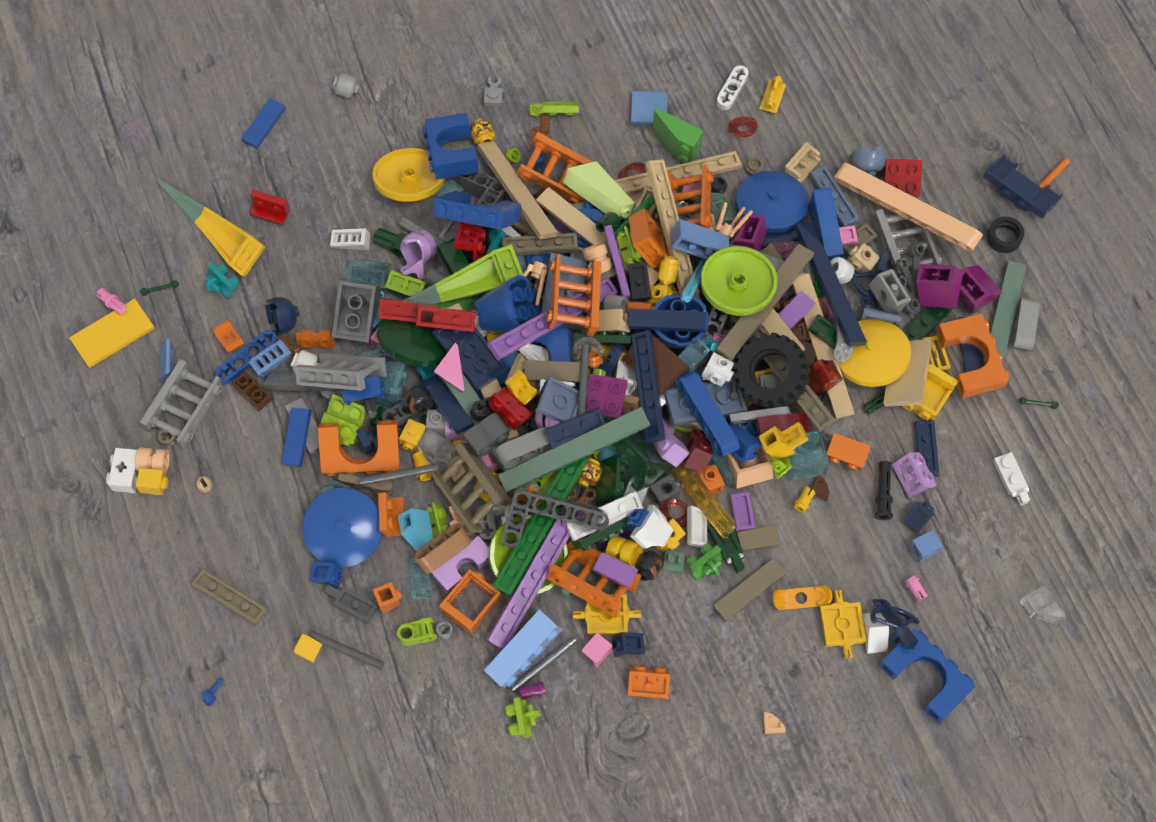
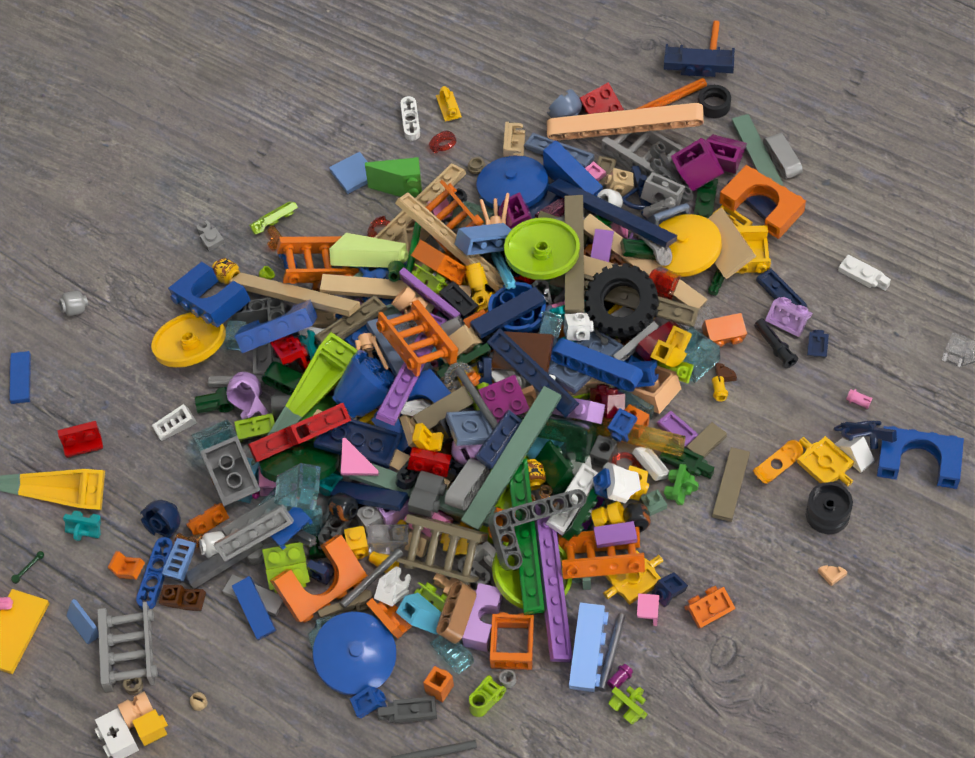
camera: 30 degrees left, 10 degrees down
(388, 362) = (298, 486): none -> clear light blue slope
(409, 493) = (391, 588): none -> white hinge
(691, 479) = (621, 425): none -> blue bracket
(807, 657) = (829, 508): none -> black wheel
(876, 304) = (659, 207): none -> light grey axle
(926, 546) = (841, 362): medium blue panel -> none
(968, 206) = (677, 94): none -> orange axle
(1054, 405) = (850, 202): dark green hinge -> none

